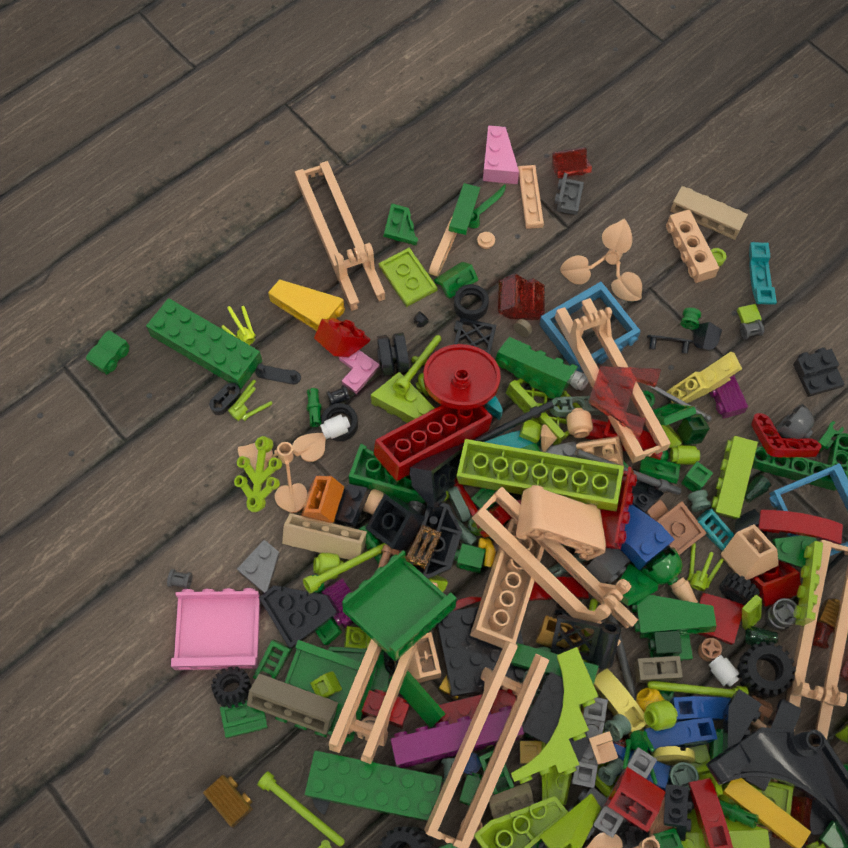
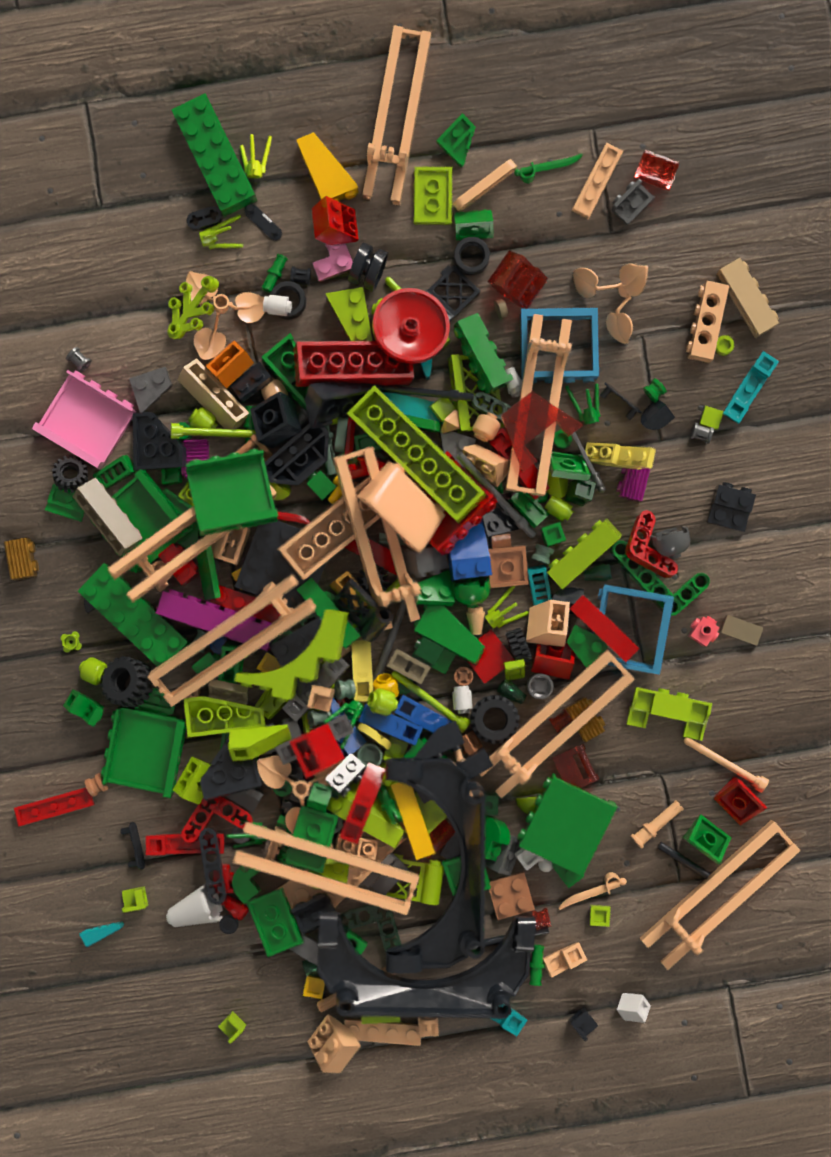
camera: 35 degrees right, 20 degrees up
(108, 352) = (127, 113): green brick -> none
(269, 783) = (59, 564): lime piece -> none
(326, 685) = (144, 518): lime slope -> none
(402, 384) = (355, 302): lime piece -> none
(416, 560) = (270, 464): clear orange tile -> none
(421, 318) = (418, 245): black hinge -> none
(464, 209) = (524, 159): green tile -> none
(486, 240) = (526, 201): light nougat plate -> none
(499, 157) = (592, 122): bright pink wedge -> none
(654, 363) = (591, 414): none -> green plant
(803, 611) = (578, 668): lime wing -> none
(826, 440) = (687, 570): green plate -> none

